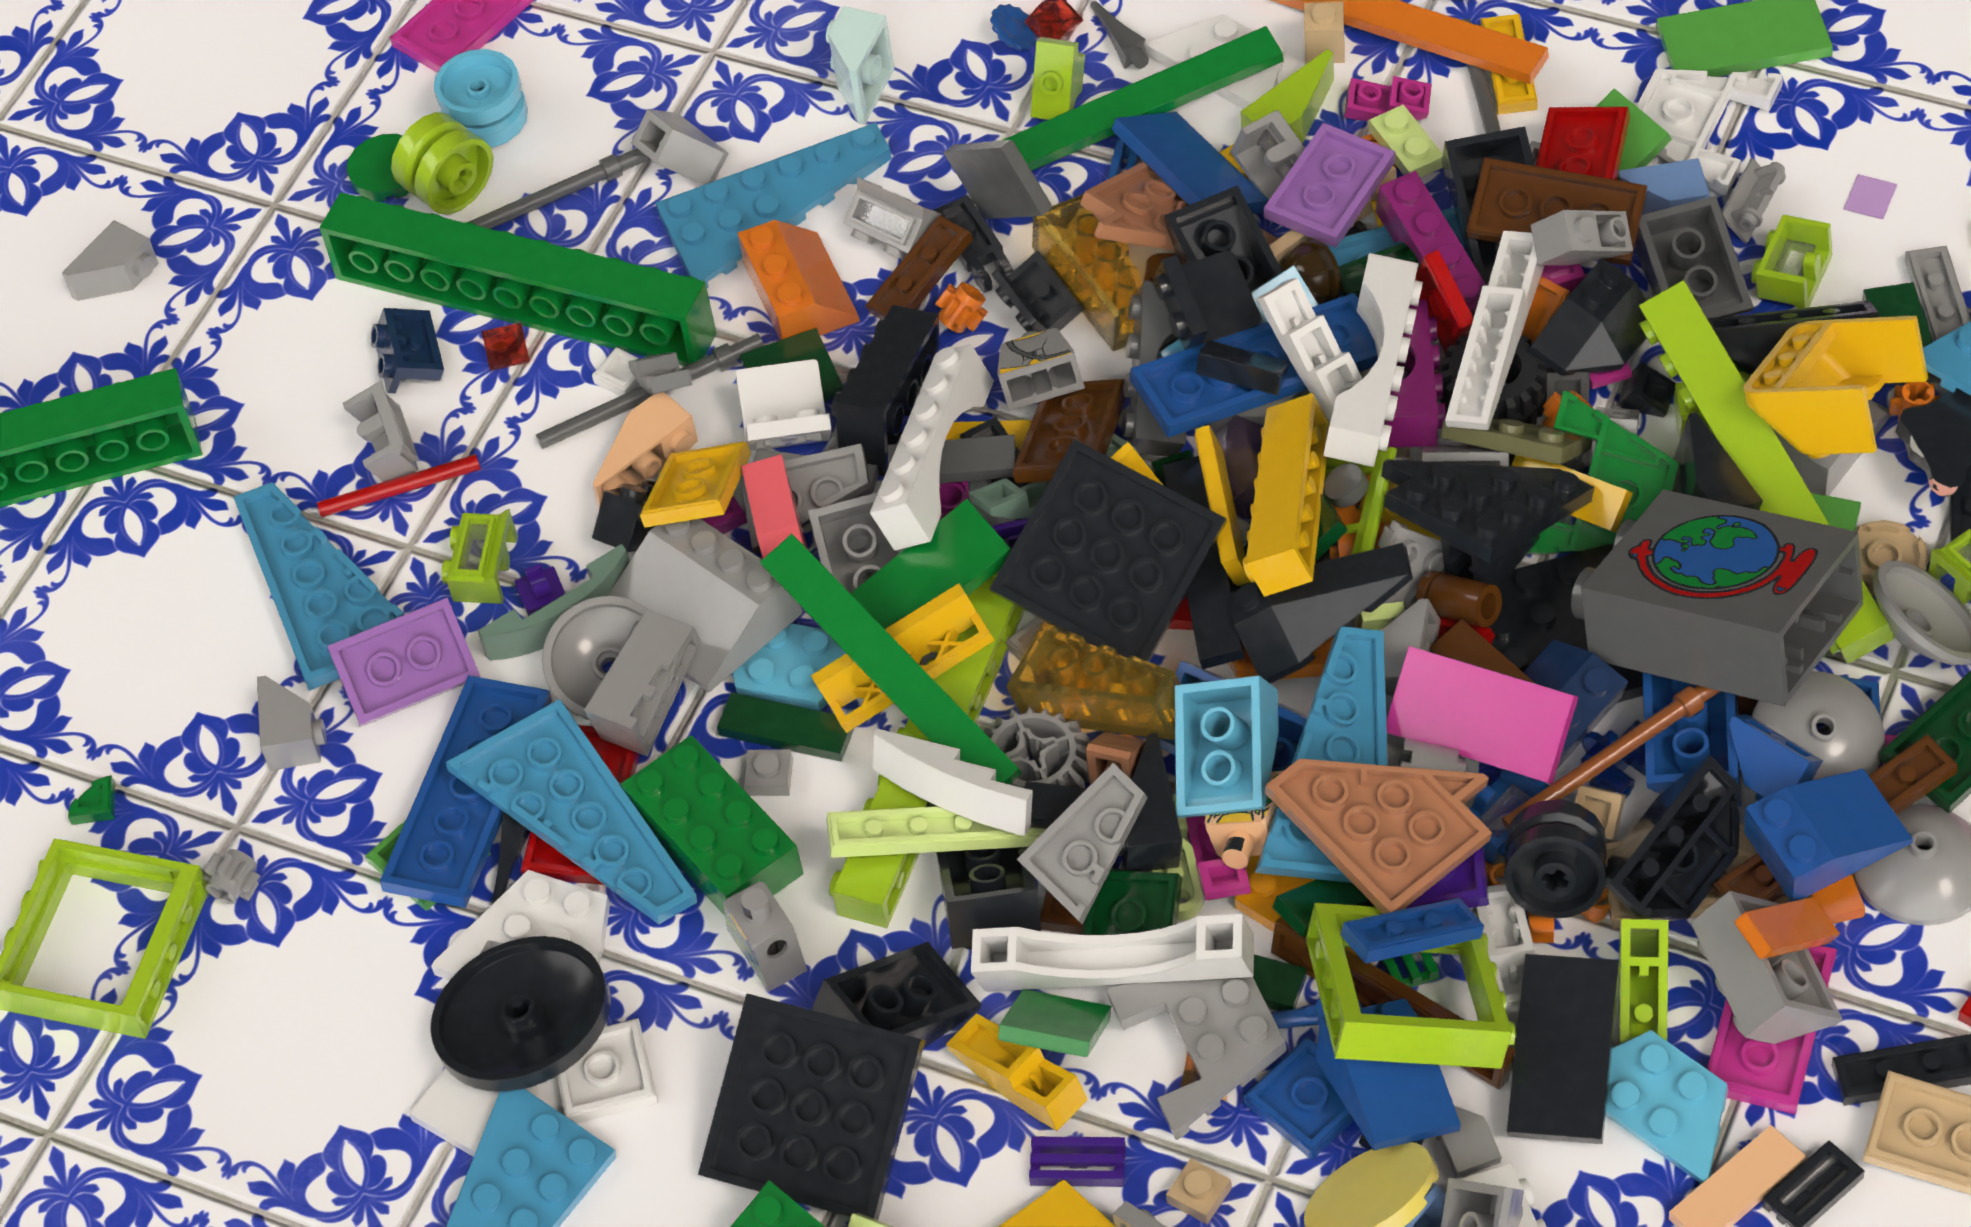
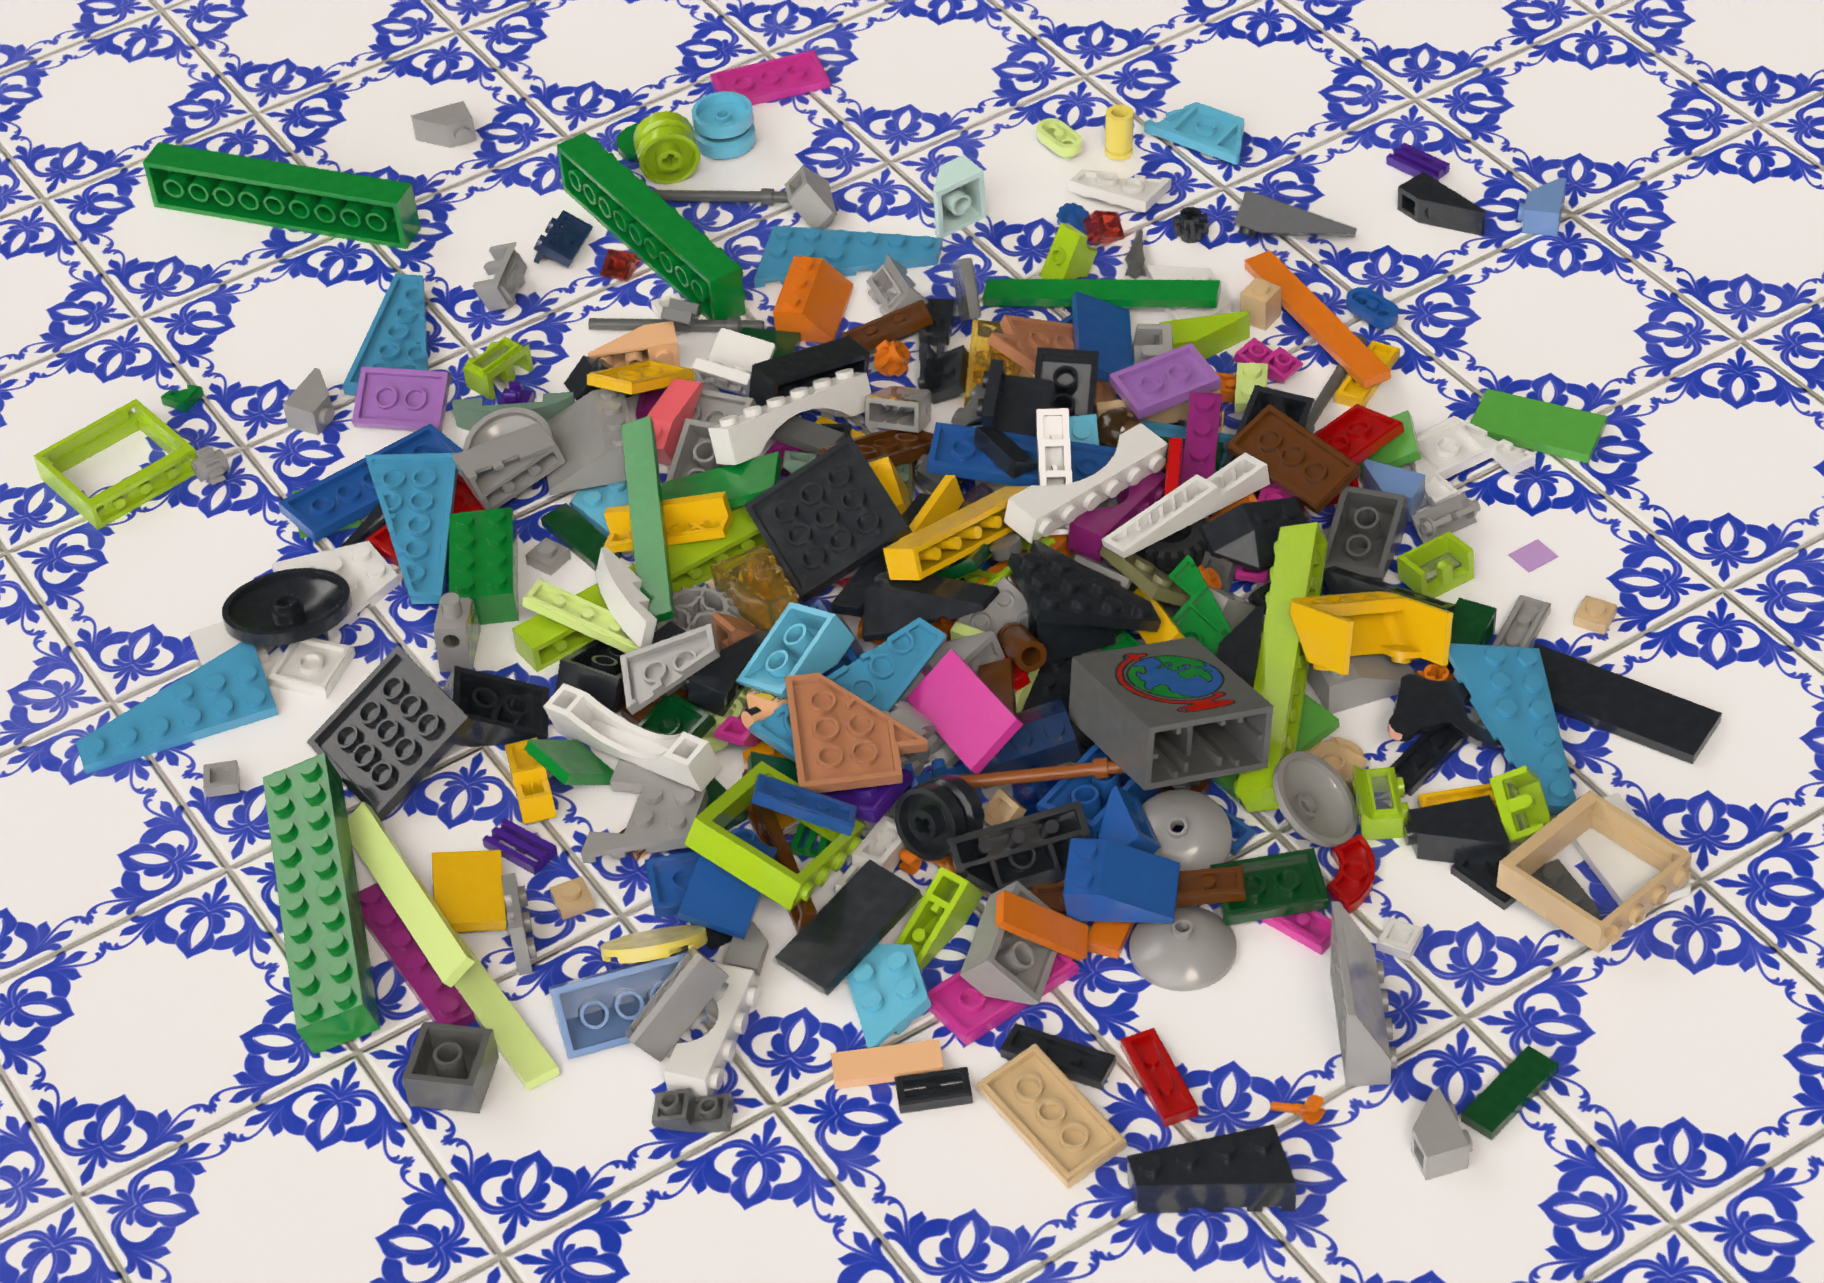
camera: 30 degrees right, 10 degrees down
(398, 485) = (492, 311): red bar -> none
(1581, 237) = (1287, 475): light grey slope -> none

